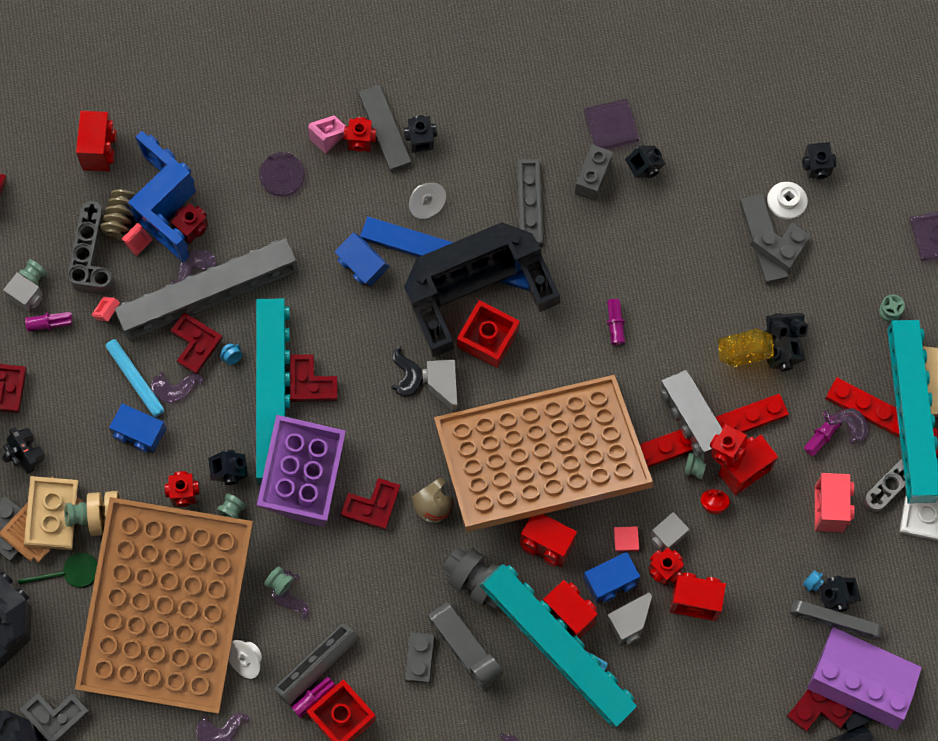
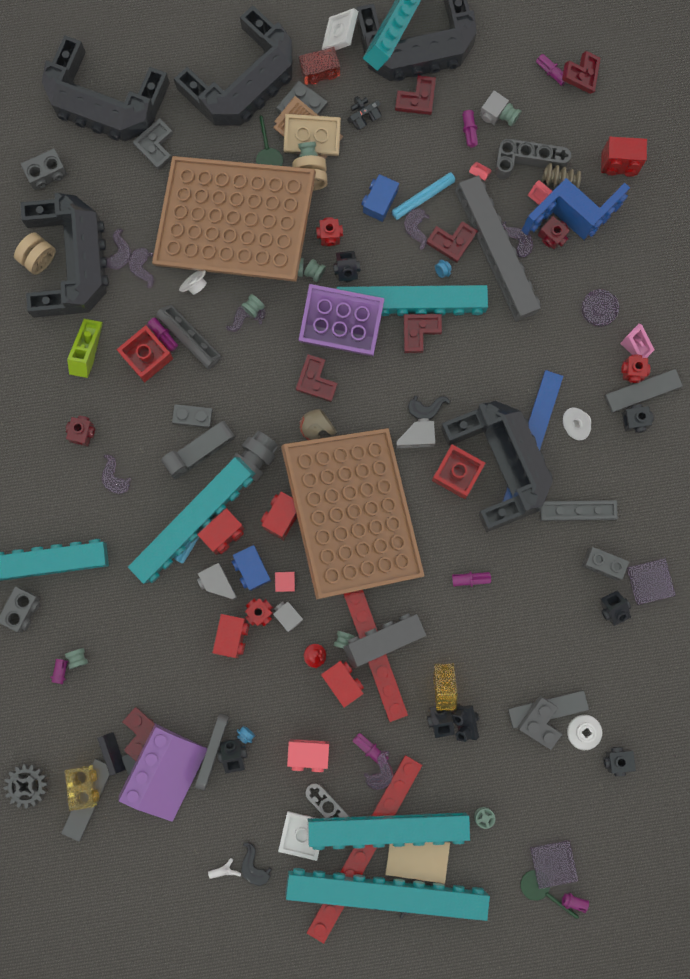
camera: 90 degrees right, 10 degrees up
(361, 259) = (523, 370): blue brick -> none
(728, 446) = (355, 661): red brick -> none

